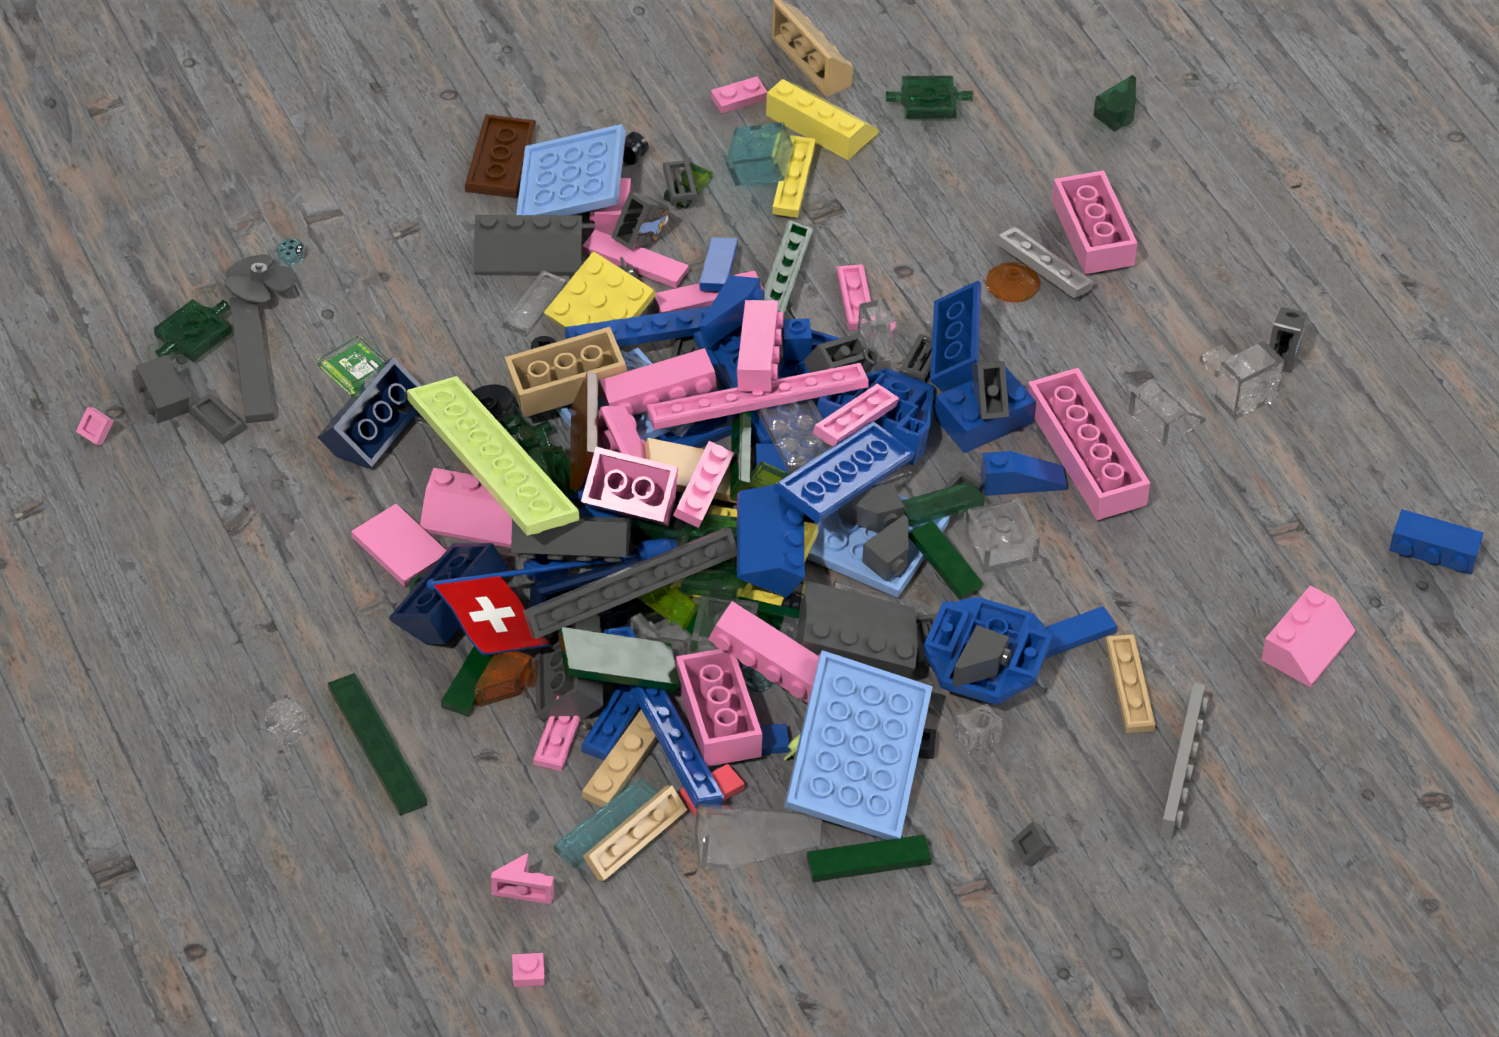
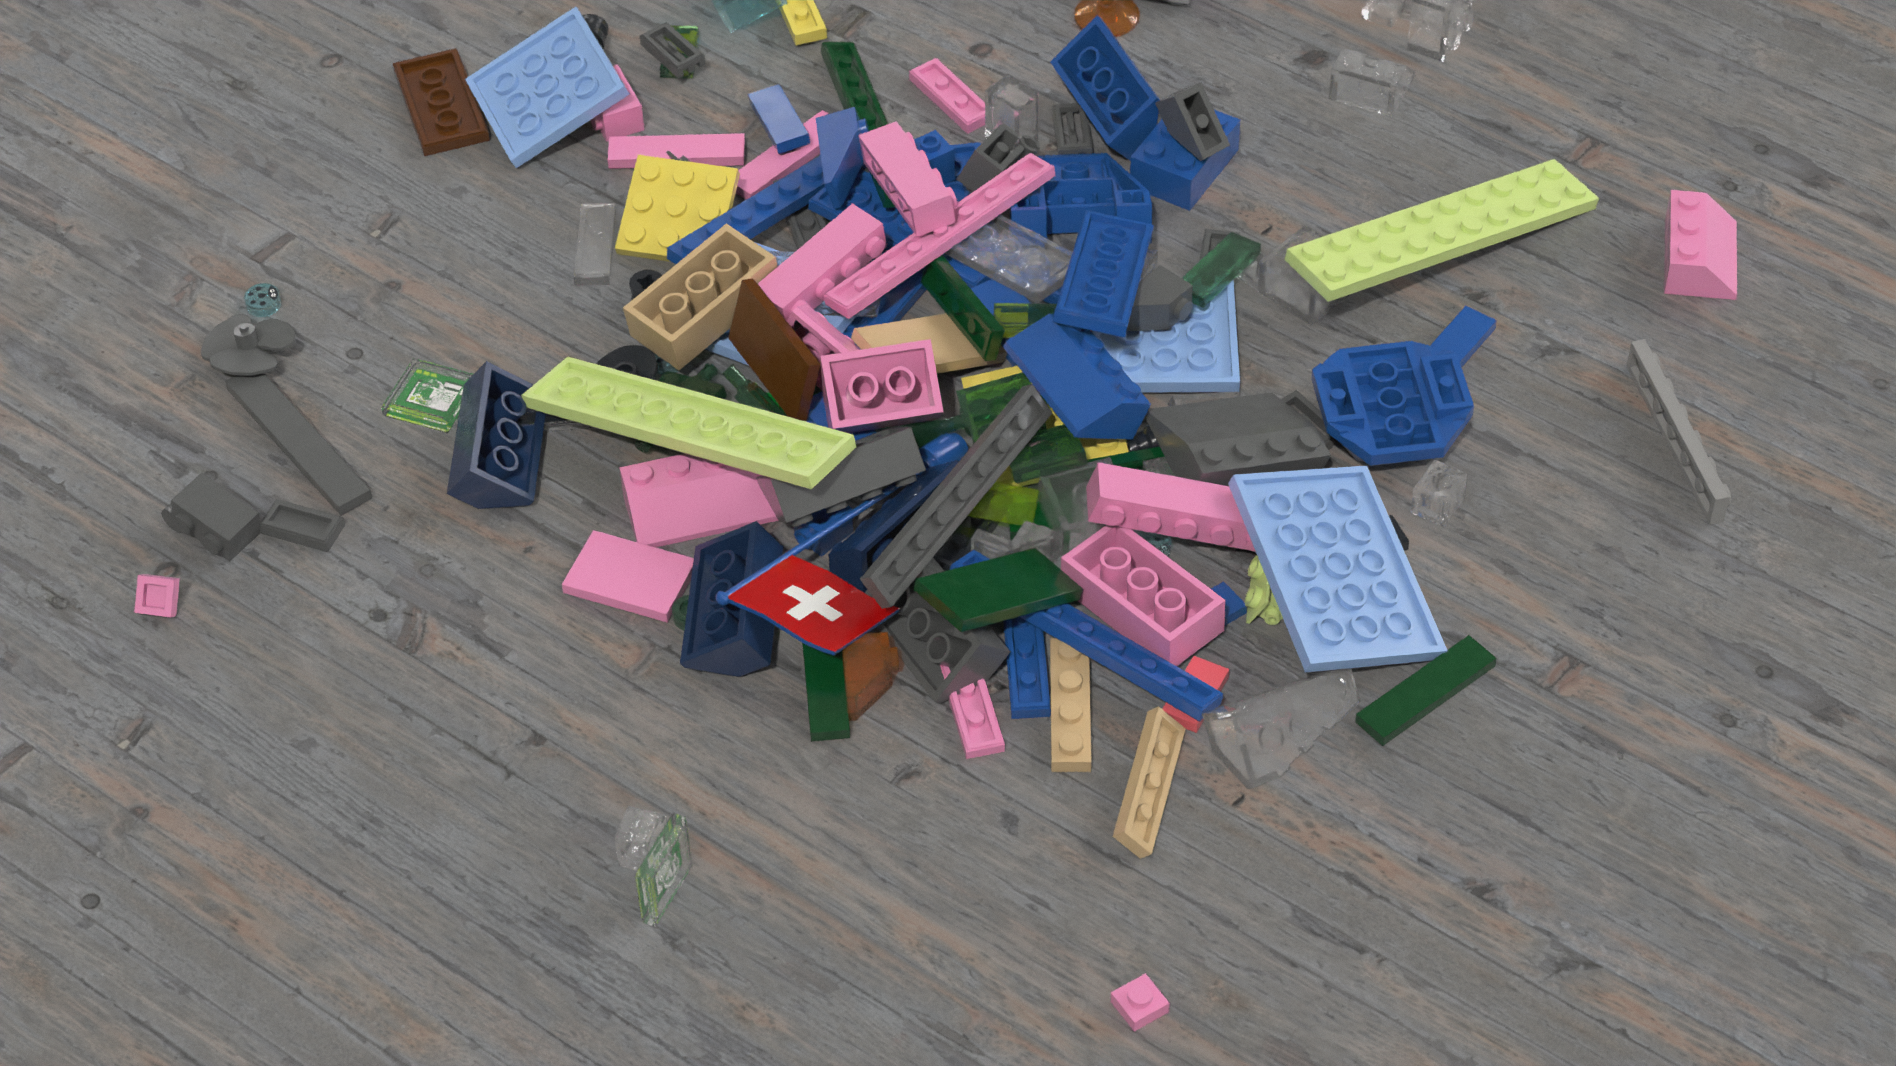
camera: 25 degrees left, 0 degrees up
(193, 330) = (204, 435): clear green plate -> none
(282, 745) = (663, 870): none -> clear tile
(377, 744) = (767, 819): clear green tile -> none
(517, 883) = (1058, 905): bright pink slope -> none
(527, 244) = (545, 182): dark grey slope -> none
(603, 822) = (1104, 787): clear light blue tile -> none
(640, 221) = (661, 103): dark grey torso -> none
(703, 484) = (951, 355): bright pink plate -> none
(855, 415) = (1064, 211): bright pink plate -> none
(888, 550) = (1205, 341): dark grey slope -> none
(946, 560) = (1266, 327): dark green tile -> none
(982, 656) = (1401, 407): dark grey slope -> none
(1017, 473) = (1270, 205): blue slope -> none
(1031, 843) = (1591, 592): dark grey plate -> none
(1088, 444) = (1326, 143): bright pink brick -> none
(1121, 543) = (1440, 229): none -> yellowish green plate
(1130, 683) = (1554, 376): tan tile -> none
(1436, 541) = (1747, 97): blue brick -> none

